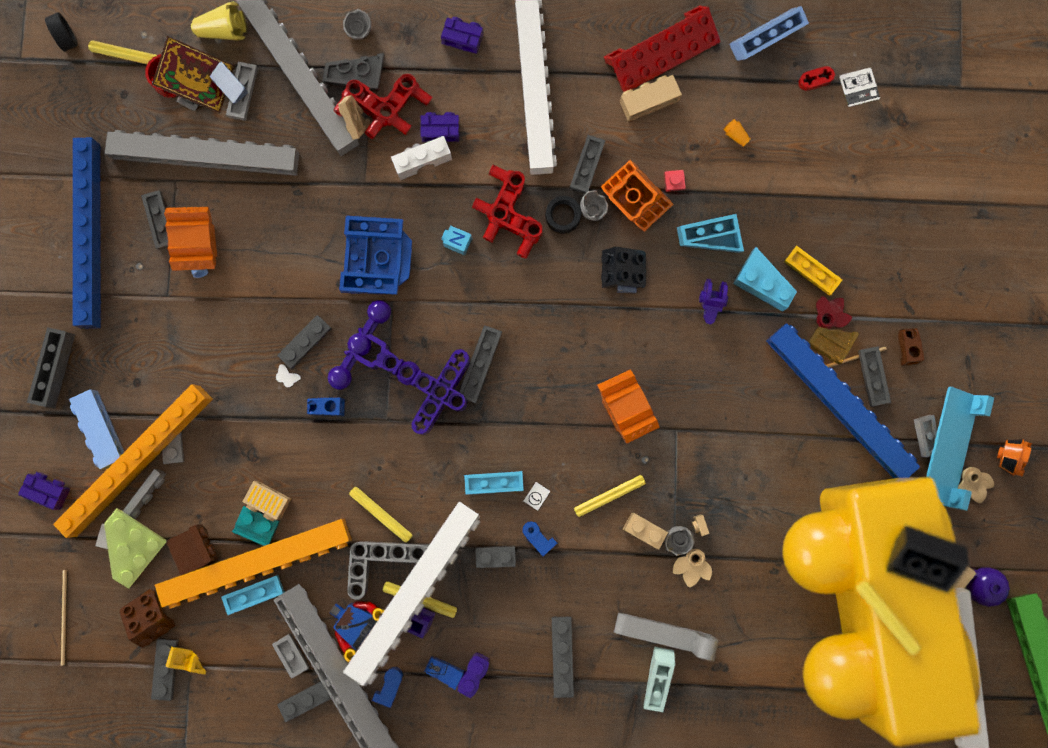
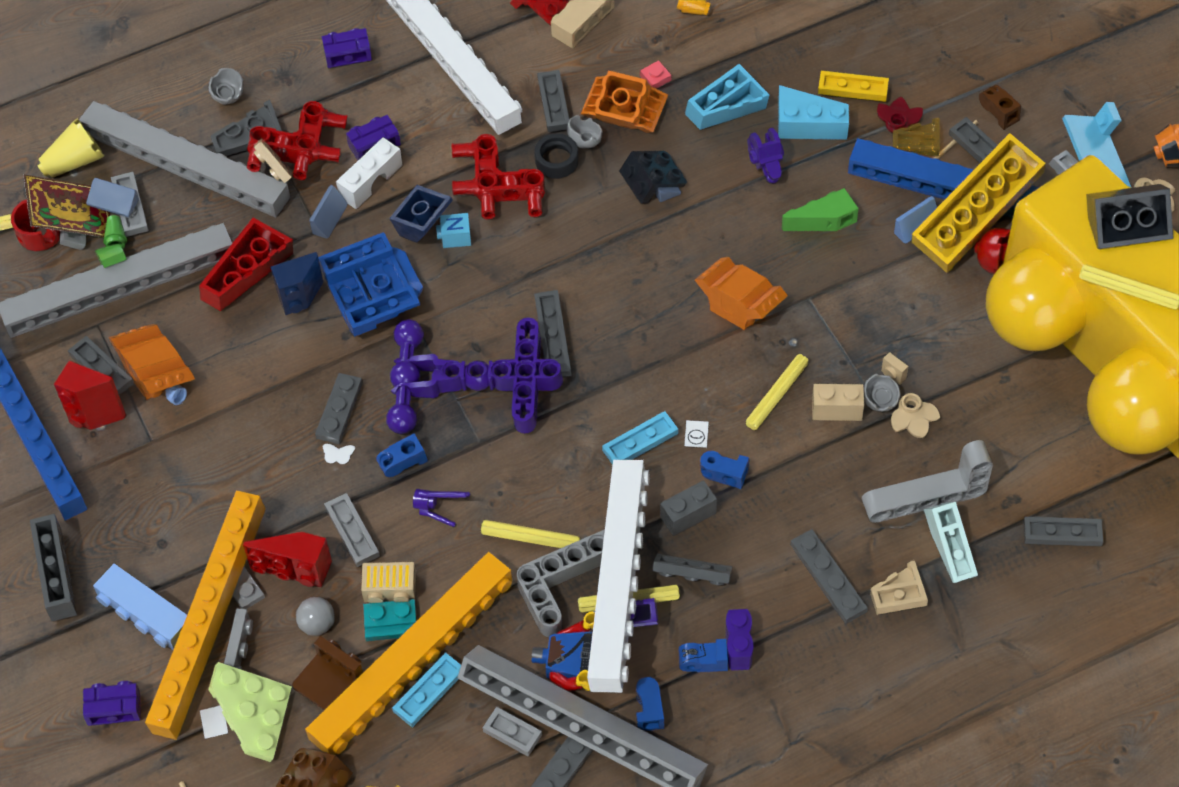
camera: 25 degrees left, 25 degrees down
(127, 248) = (88, 397): none -> red slope
(204, 132) = (110, 255): none -> bright green slope
(208, 497) = (315, 616): none -> light grey hair
(215, 455) = (291, 556): none -> red slope
(218, 112) = (114, 232): none -> bright green cone
(263, 445) = (351, 530): none -> light grey plate
(295, 189) = (245, 263): none -> red wedge
(320, 229) = (297, 282): none -> dark blue slope
(324, 451) = (427, 500): none -> dark purple plant
(376, 175) = (328, 213): none -> sand blue slope
(437, 216) = (419, 212): none -> dark blue slope
(473, 603) = (692, 569): none -> dark grey plate
(602, 696) = (899, 591): none -> tan wing
(728, 371) = (825, 214): none -> bright green slope
(740, 714) = (1063, 531): none -> dark grey plate
(790, 412) = (912, 219): none -> medium blue slope
(829, 471) = (992, 249): none -> red cylinder
(840, 432) = (978, 202): none -> yellow brick

